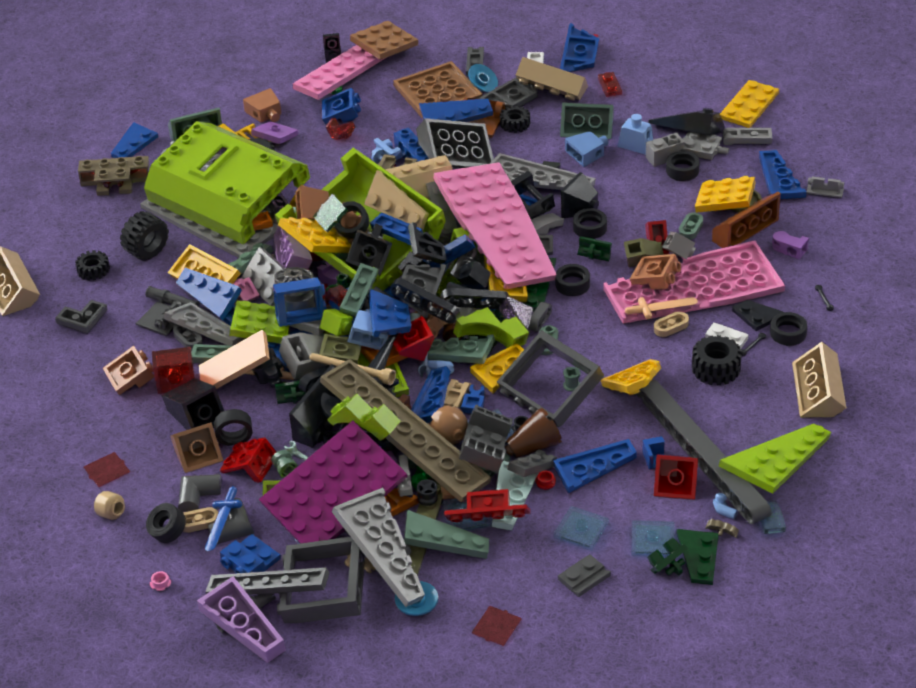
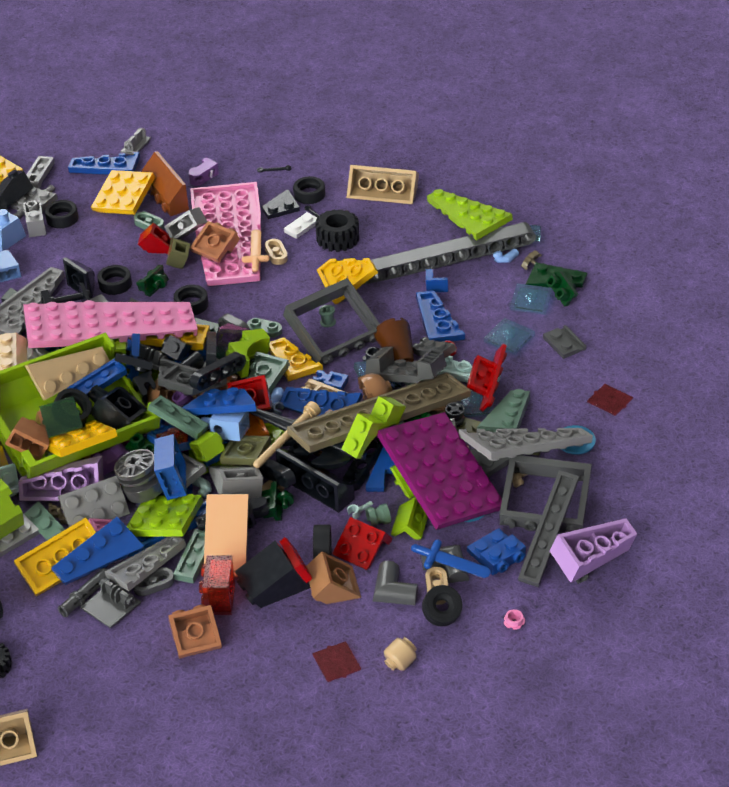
camera: 80 degrees left, 0 degrees up
(82, 320) = (87, 672): dark grey brick -> none
(205, 412) = (295, 560): none -> red tile
(675, 477) = (467, 273): red slope -> none

